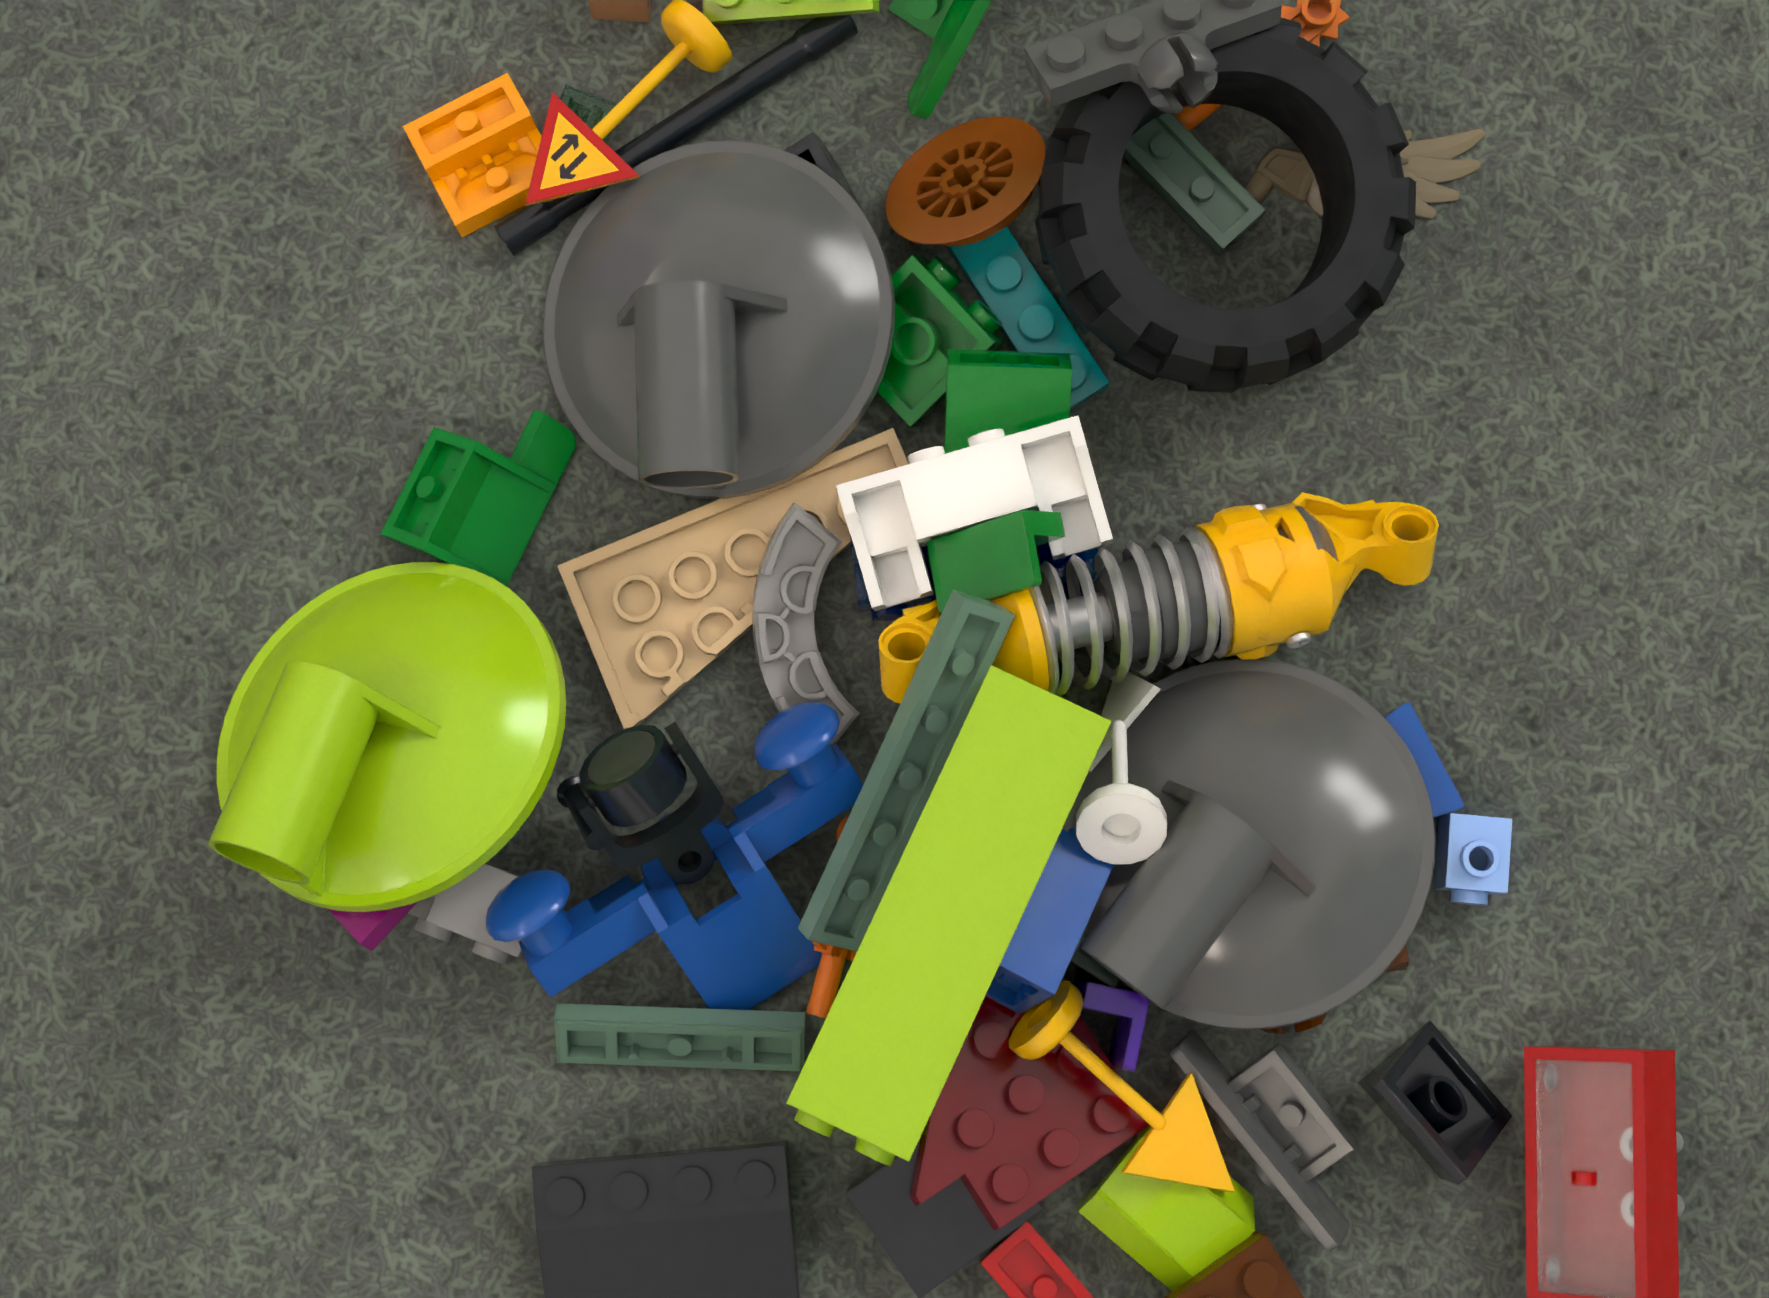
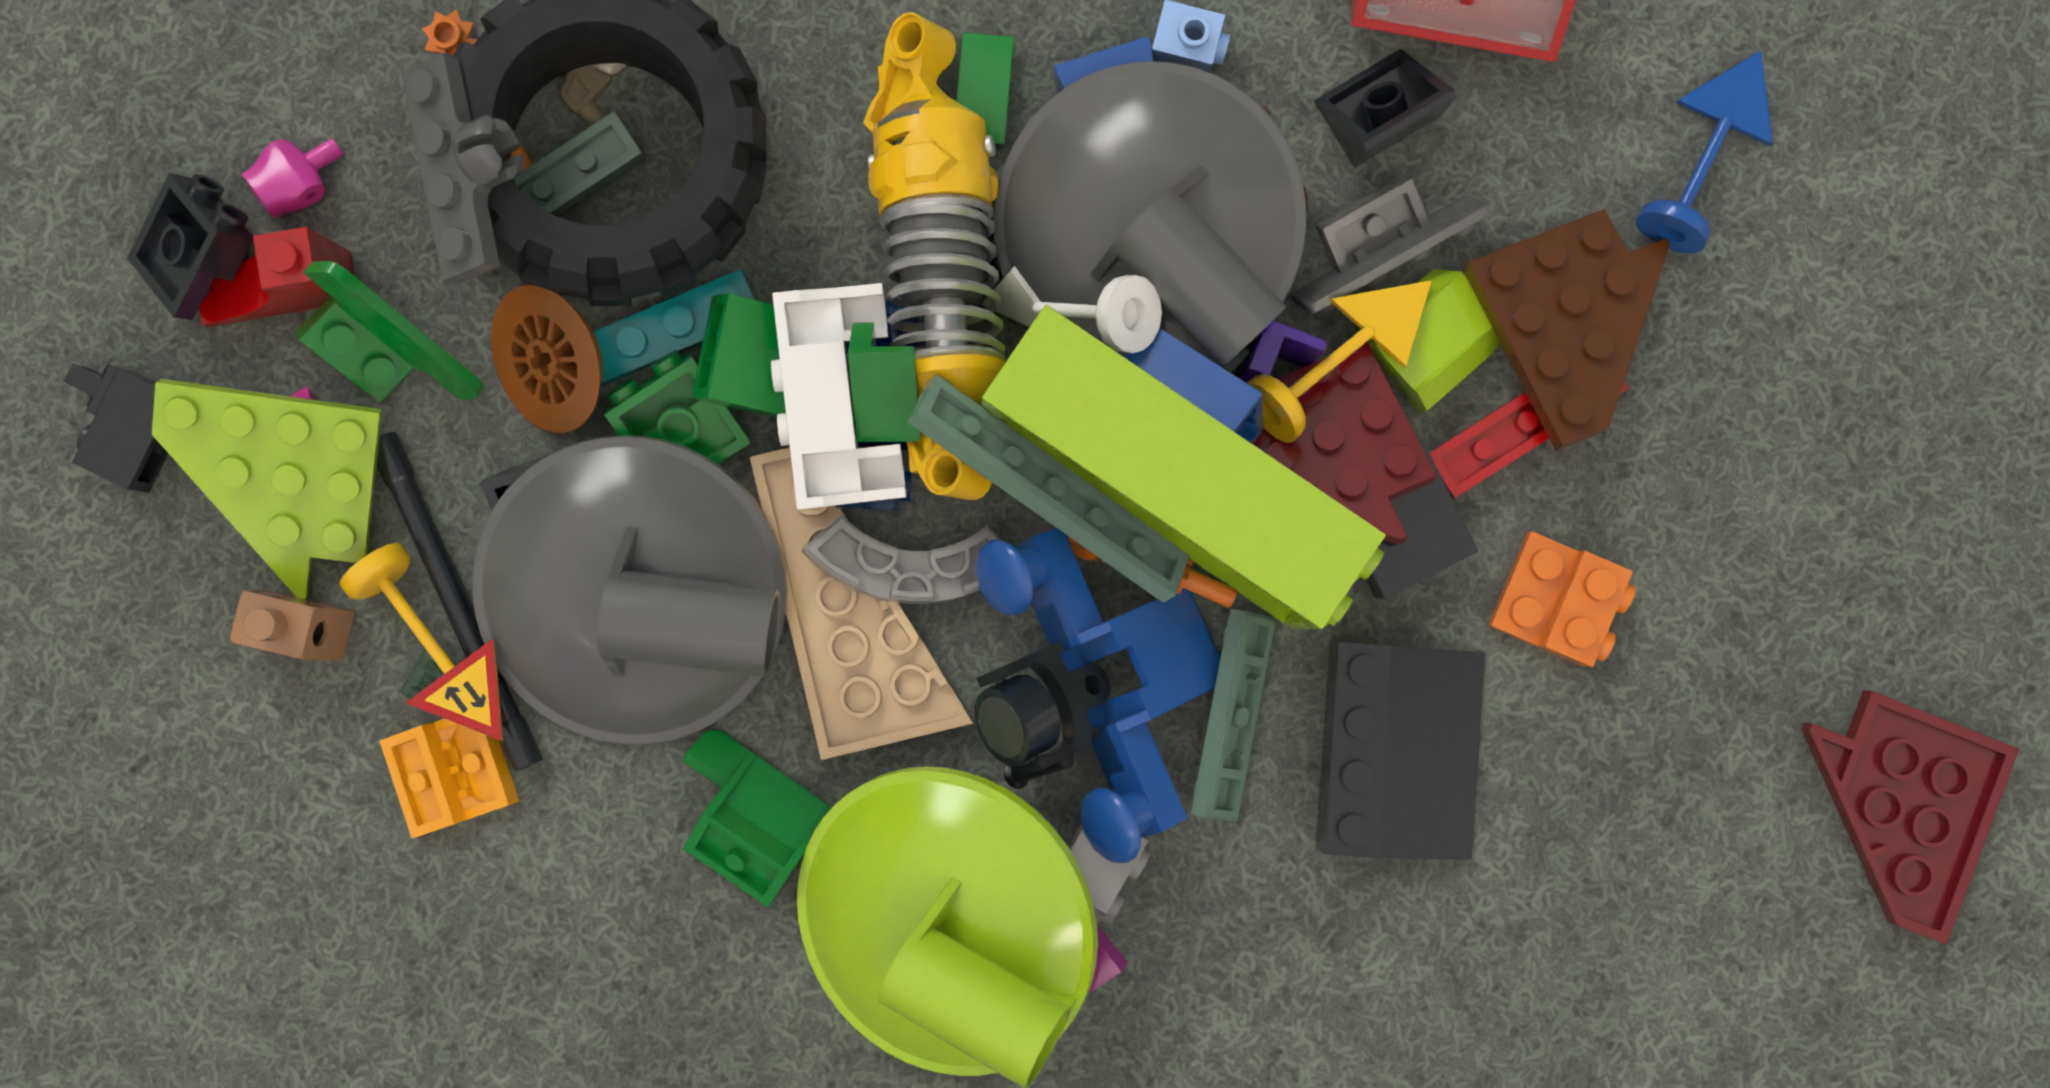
camera: 75 degrees left, 5 degrees up
(1378, 628) = (986, 79): none -> green slope

